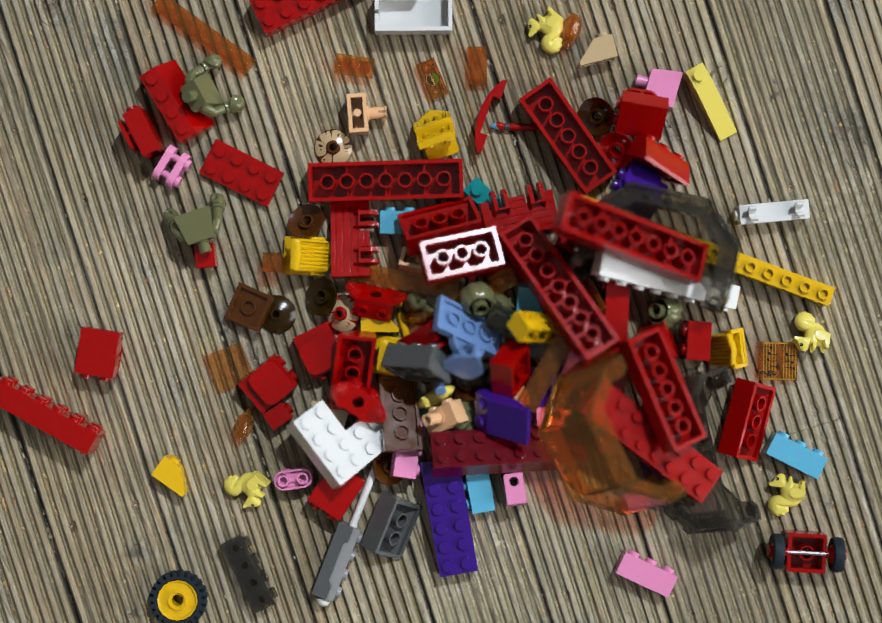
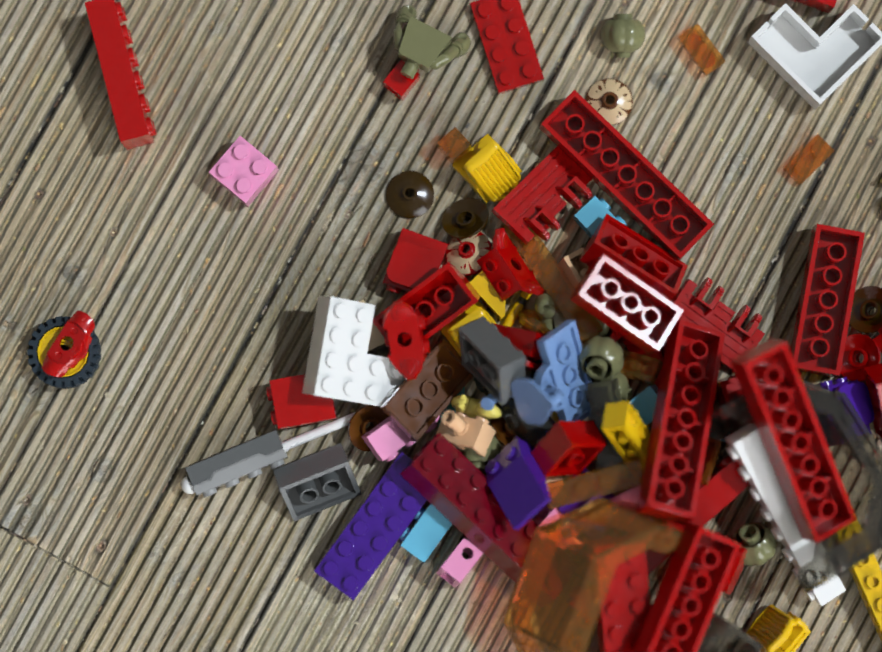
camera: 50 degrees right, 5 degrees down
(99, 353) = (221, 68): red brick -> none
(171, 474) = (173, 237): yellow slope -> none
(172, 397) = (244, 171): none -> bright pink brick
(173, 579) = (79, 329): none -> red piece
(228, 366) = (321, 197): clear orange tile -> none
(244, 424) = (280, 260): clear orange plant -> none
(249, 307) = (392, 163): reddish brown plate -> none
(249, 573) = (150, 392): clear smoke brick -> none
(250, 484) = (231, 316): light yellow animal -> none
(268, 382) = (341, 245): red brick -> none
(278, 415) = (320, 282): red brick -> none
(294, 478) = (276, 351): bright pink brick -> none
(302, 103) = (622, 35): none -> olive plant
(304, 215) = (520, 139): reddish brown dish -> none
(360, 114) = (664, 96): light nougat brick -> none
(432, 79) = (757, 130): clear orange tile -> none
(436, 134) = (712, 181): yellow piece -> none
(480, 192) = (698, 270): teal plate -> none
(496, 93) = (800, 200): red slope -> none
(513, 126) = (776, 233): red piece -> none
(695, 340) = (757, 596): red brick -> none

